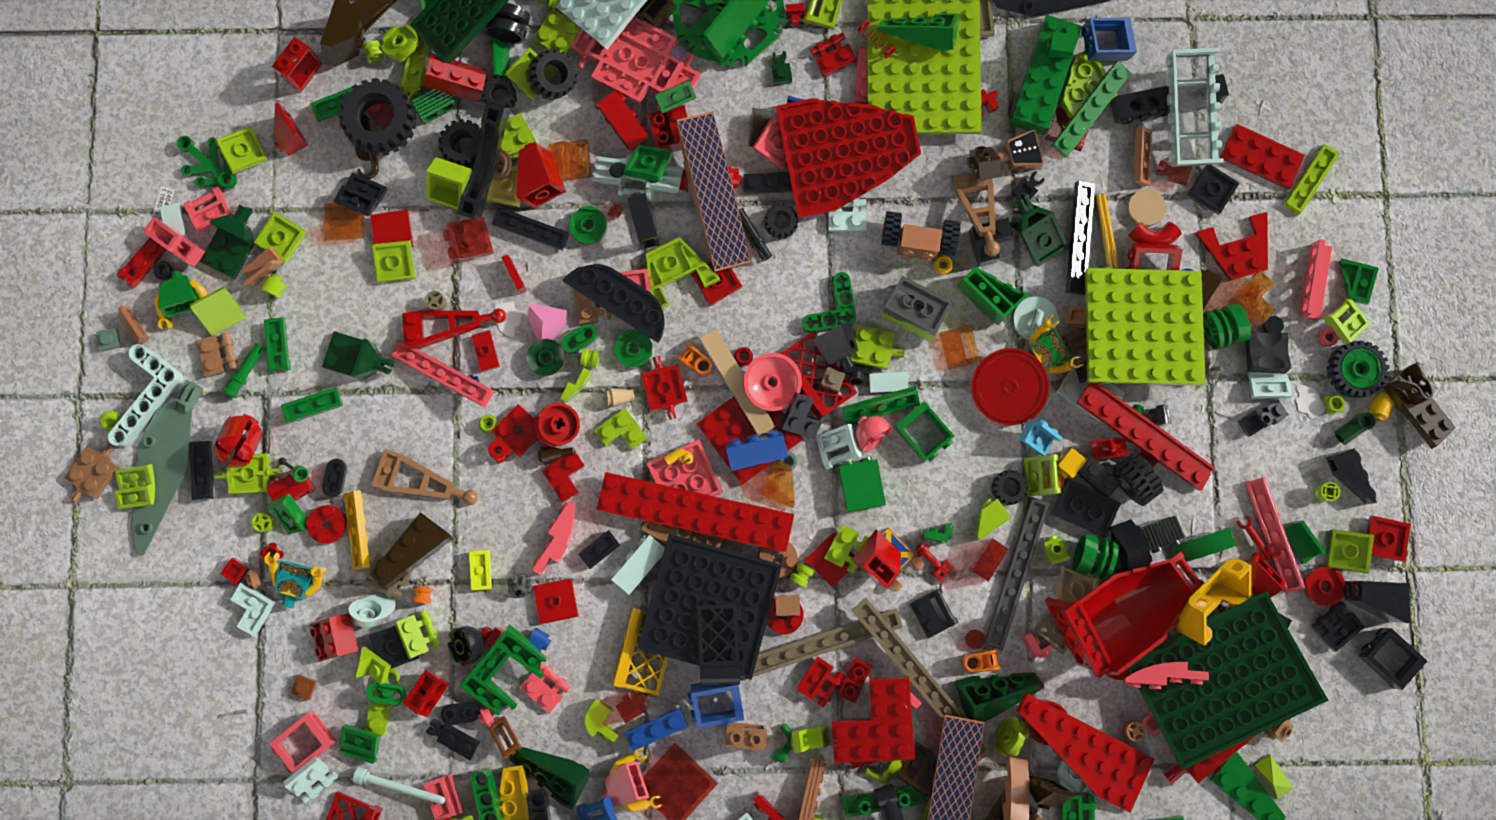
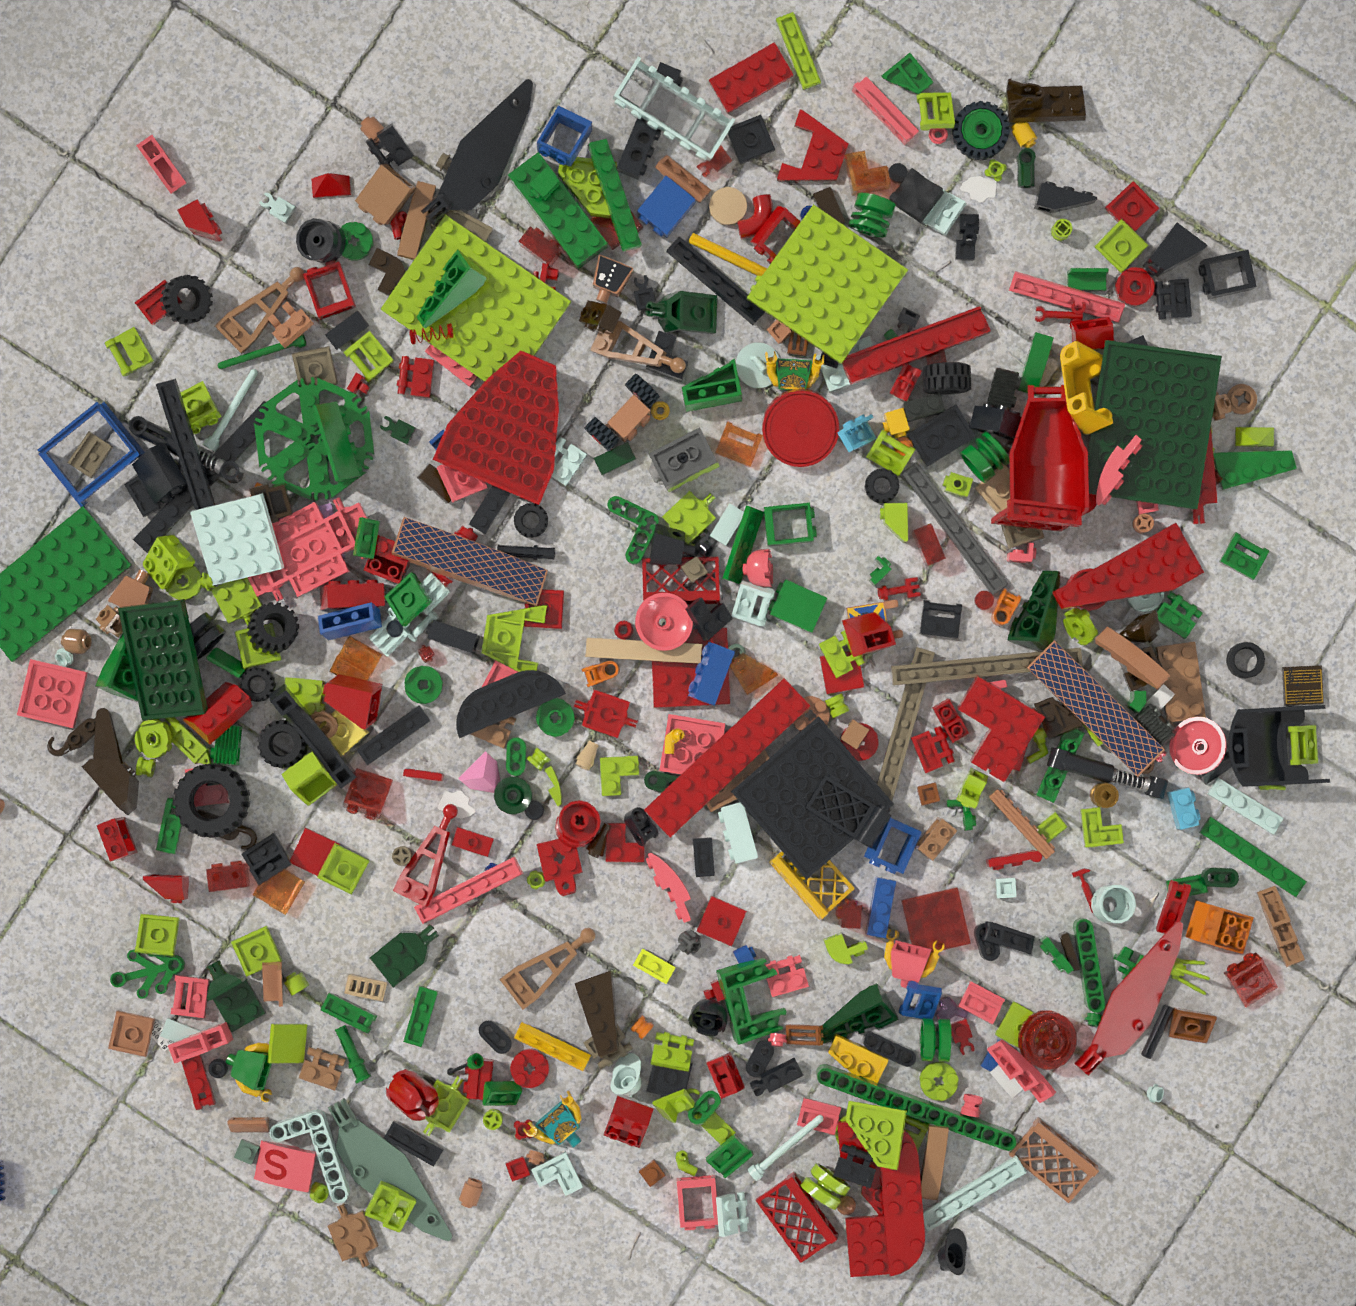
camera: 55 degrees left, 5 degrees up
(115, 379) = (285, 1166): none -> coral slope
(148, 183) = (131, 1033): none -> nougat tile
(189, 545) = (471, 1192): none -> nougat brick
(298, 341) = (348, 989): none -> tan slope
(325, 174) = (227, 877): none -> clear red brick
(328, 708) = (683, 1163): none -> lime arm
(545, 384) = (534, 810): none -> black tile
(590, 480) = (640, 827): none -> black piece
(599, 131) = (349, 621): none -> blue brick
(640, 472) = (662, 780): none -> dark green plate
(780, 703) = (928, 793): none -> dark orange plate
(878, 255) = (614, 458): none -> dark green tile
(1006, 80) = (539, 246): none -> clear red brick
(1110, 158) = (665, 207): none -> blue brick
(1304, 749) = (1250, 397): none -> medium nougat gear

